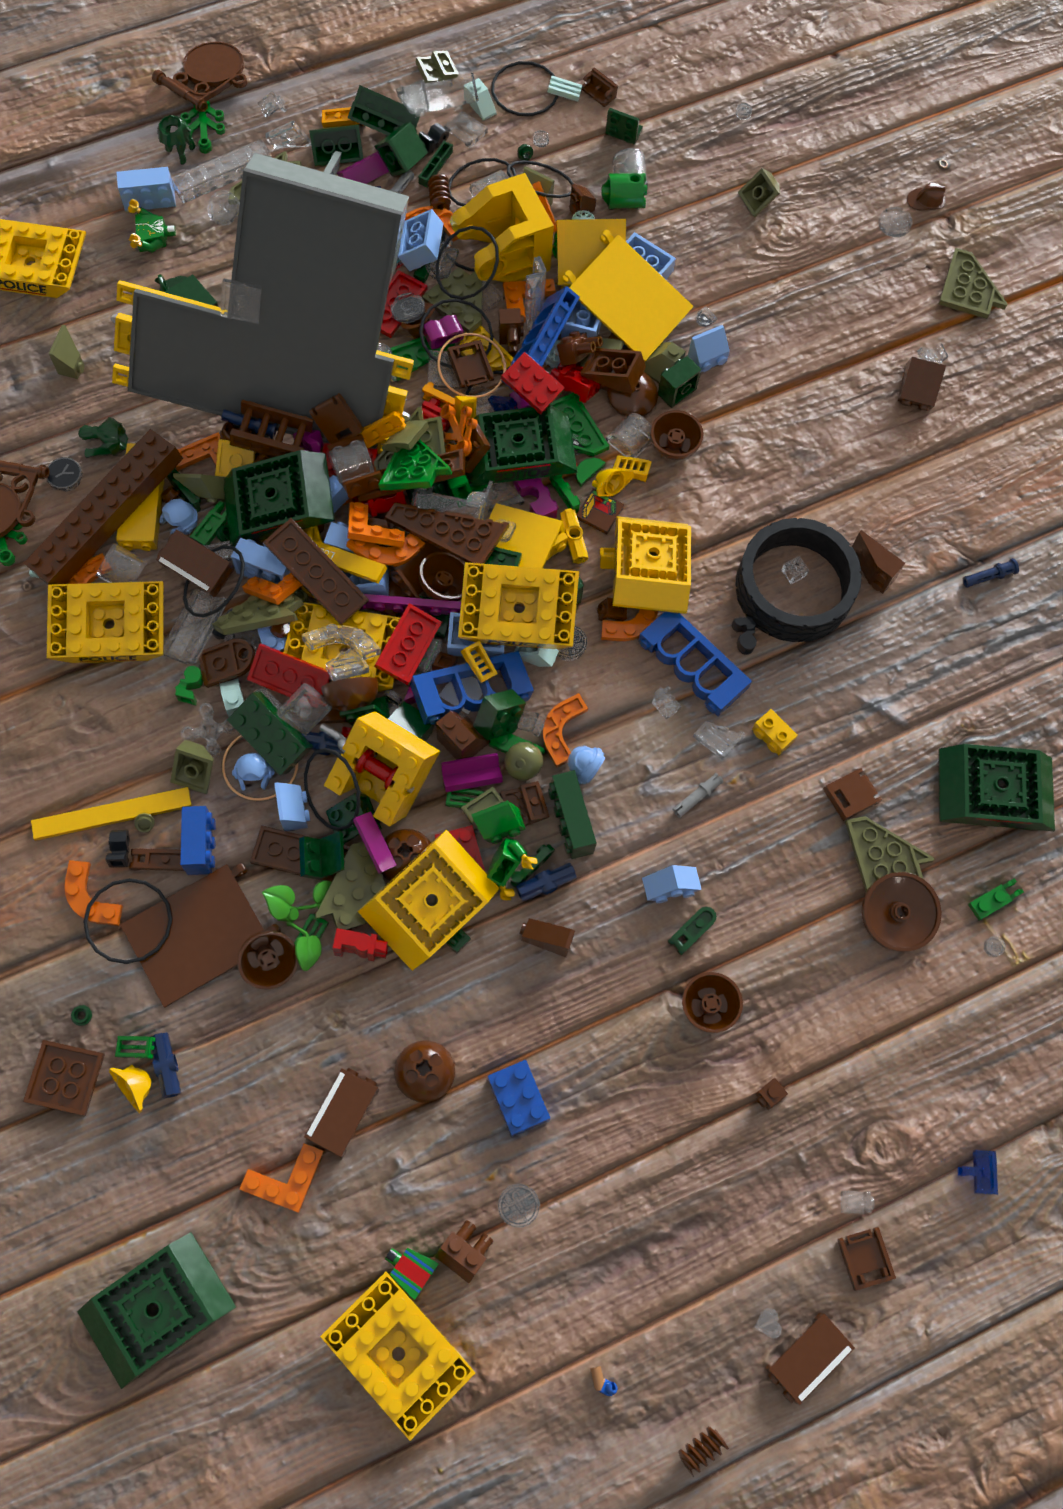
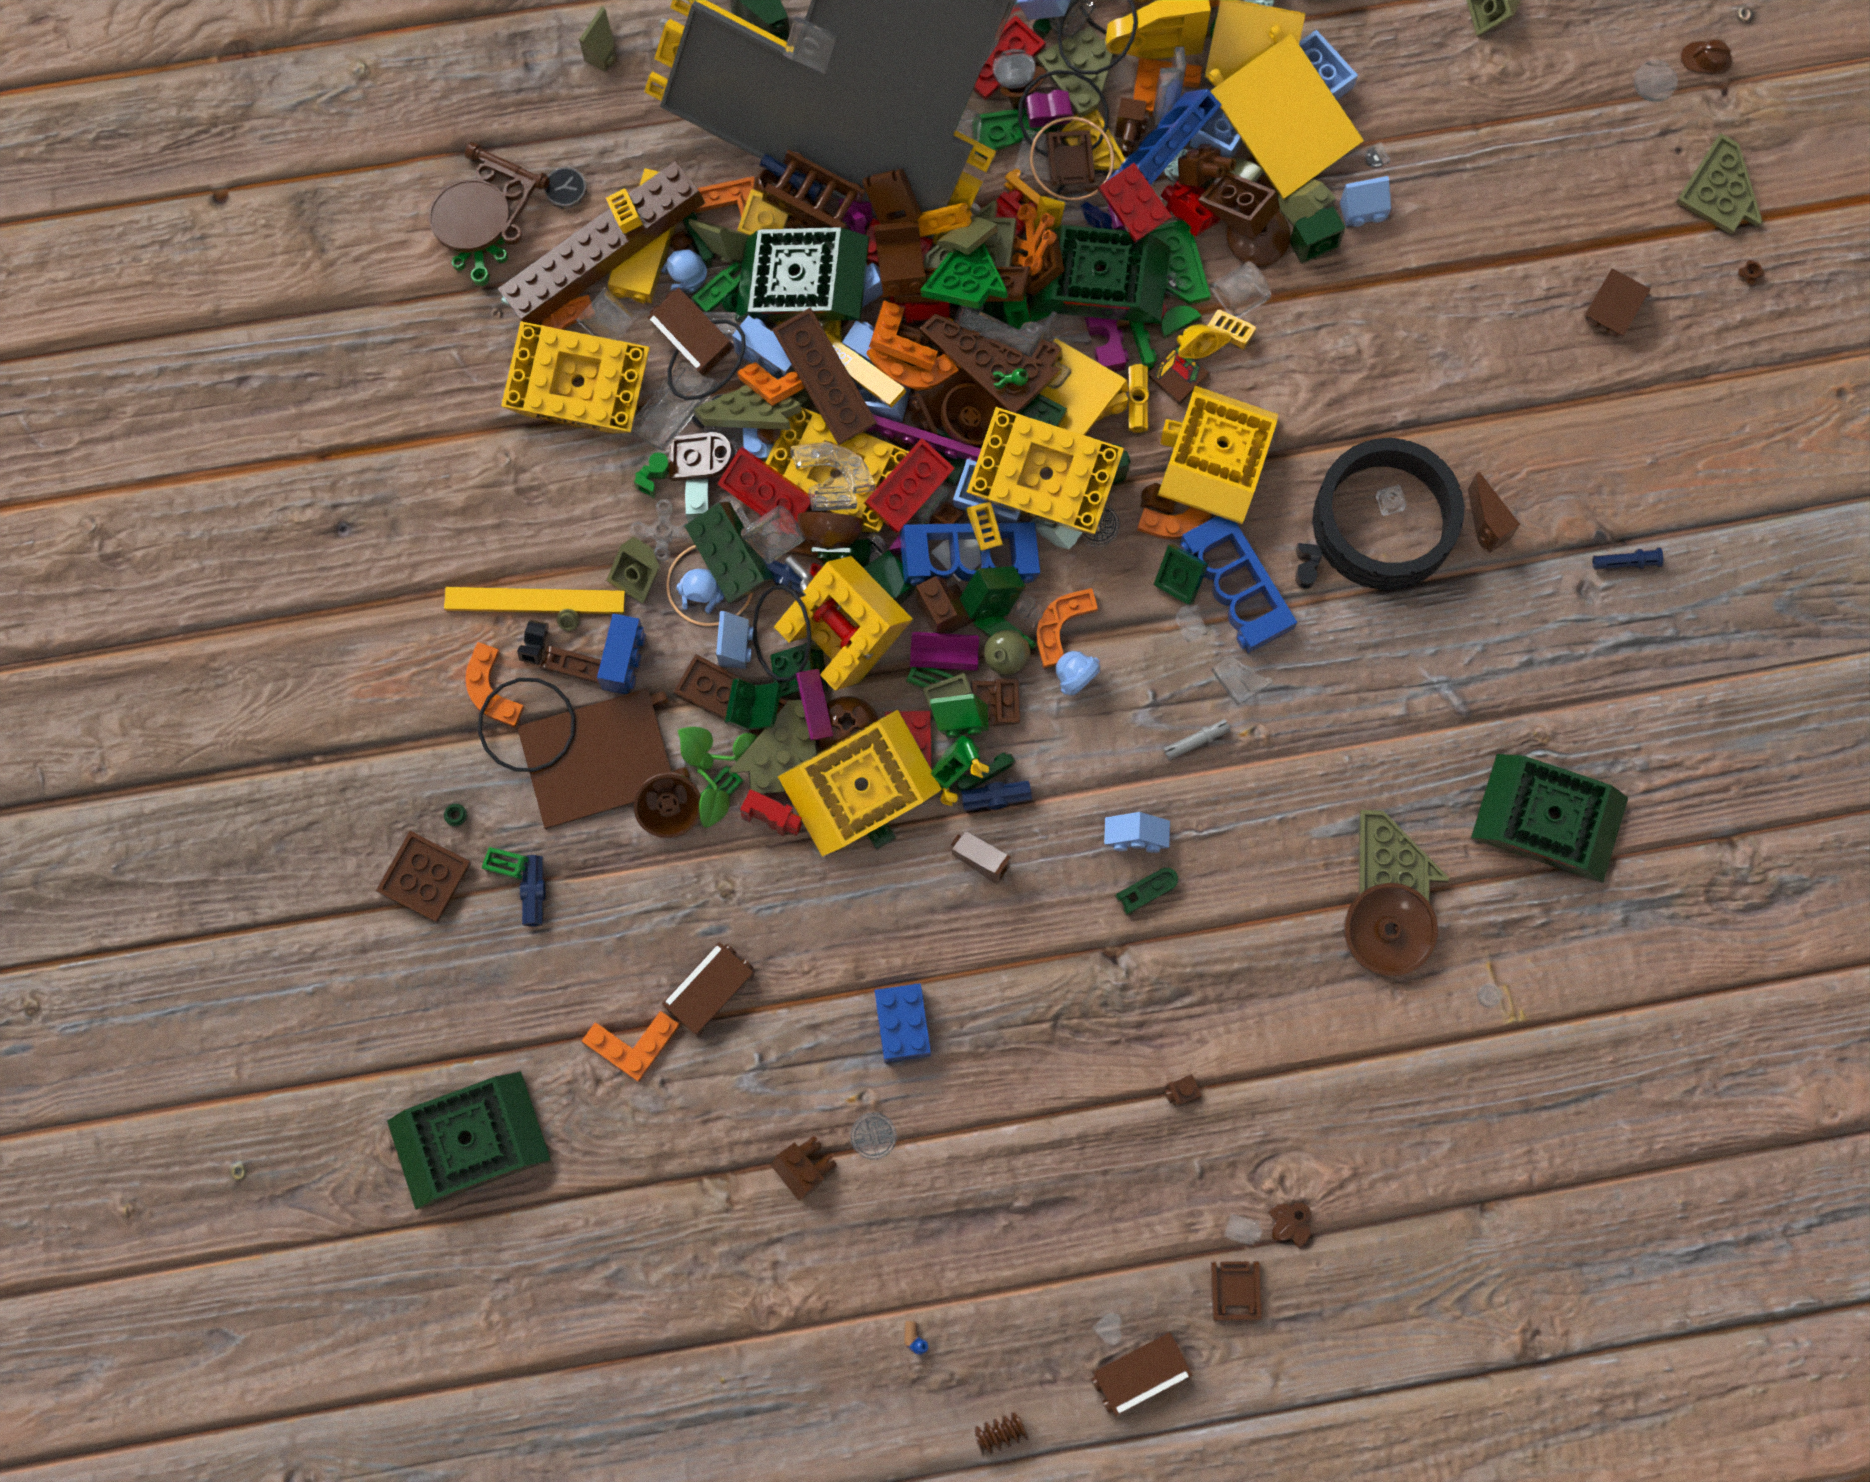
camera: 20 degrees right, 5 degrees up
(110, 433) = (628, 151): dark green piece -> none
(124, 483) = (629, 223): none -> yellow slope
(133, 1083) = (494, 901): yellow hat -> none
(350, 461) = (896, 252): clear brick -> none
(405, 1389) = (677, 1230): yellow slope -> none
(411, 1270) = (742, 1171): torso -> none
(421, 1082) = (801, 979): reddish brown piece -> none
(476, 536) = (1017, 377): none -> green arm
(495, 513) = (1048, 352): none -> reddish brown bracket
(572, 815) = (1045, 724): dark green brick -> none
(648, 664) = (1180, 574): none -> dark green tile
(676, 434) = (1298, 293): reddish brown piece -> none
(719, 994) = (1153, 966): reddish brown piece -> none
(774, 732) = (1307, 688): yellow brick -> none
(856, 791) = (1382, 781): reddish brown container -> none
(892, 1187) = (1288, 1225): none -> reddish brown plate
(936, 354) = (1643, 269): clear bracket -> none
(983, 1171) = (1395, 1235): clear blue plate -> none
(993, 900) = (1505, 943): green hinge -> none
(1010, 342) = (1755, 268): none -> reddish brown plate

